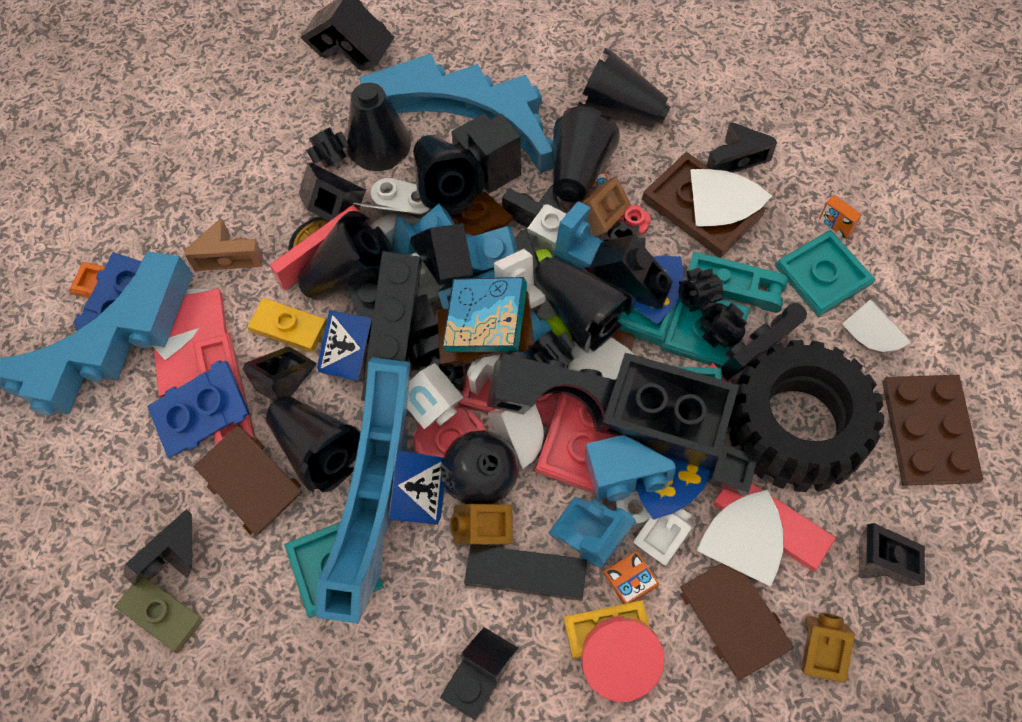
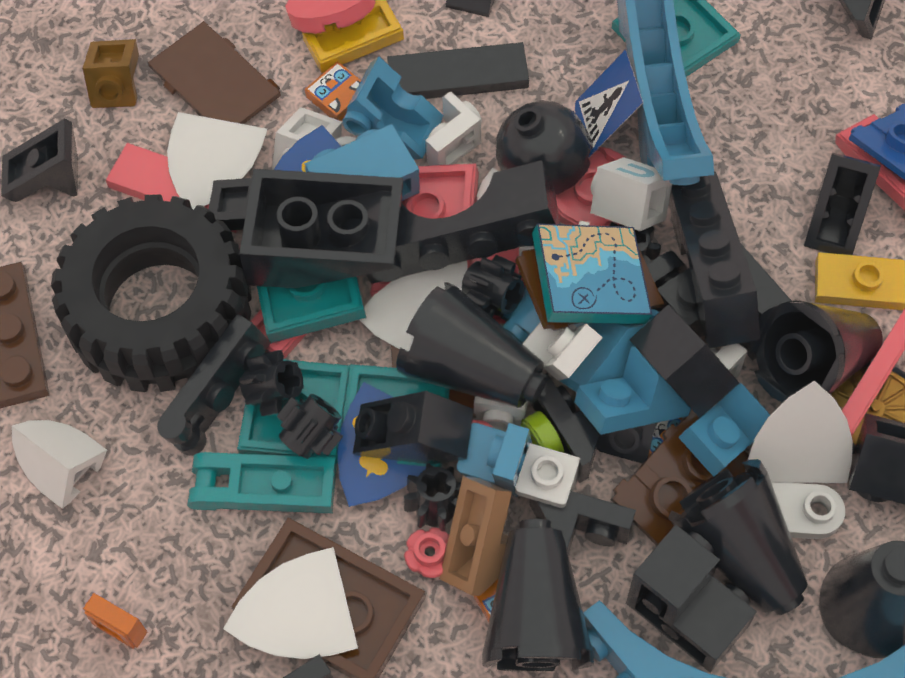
camera: 165 degrees right, 0 degrees up
(248, 480) = (816, 86): reddish brown piece -> none
(314, 442) = (763, 132): black cone -> none
(344, 345) = (773, 250): blue sticker -> none
(482, 524) = (517, 89): pearl gold bracket -> none
(548, 498) = (458, 136): none -> white bracket
(824, 273) = (134, 536): teal tile -> none

